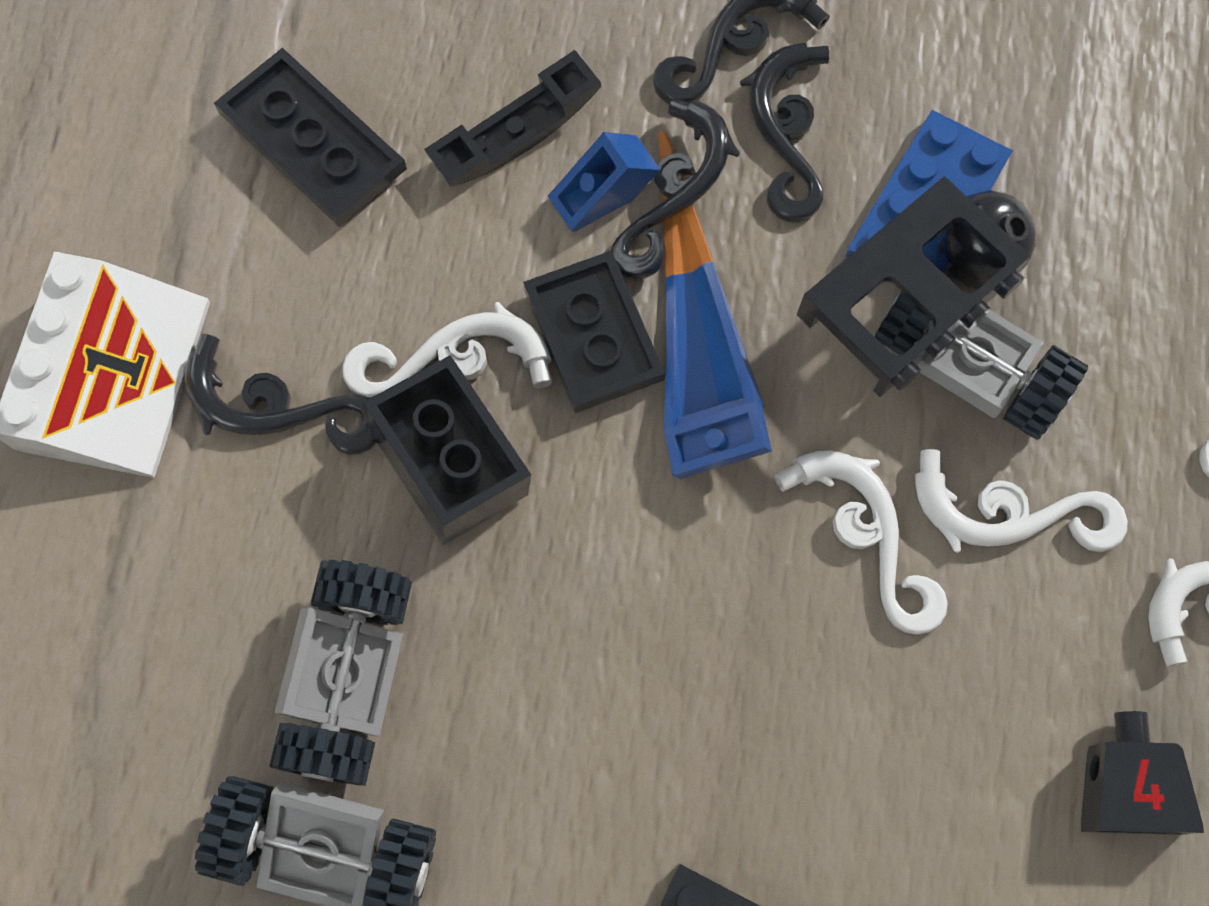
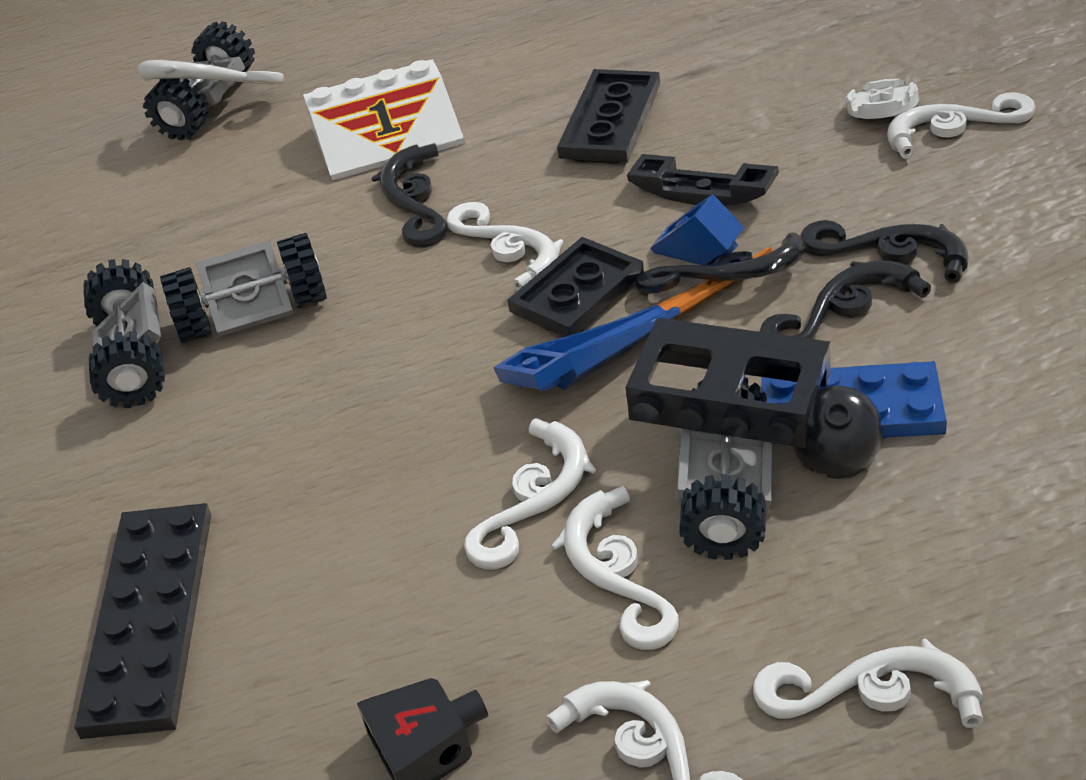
camera: 70 degrees right, 30 degrees down
(447, 449) = (425, 257): black brick -> none

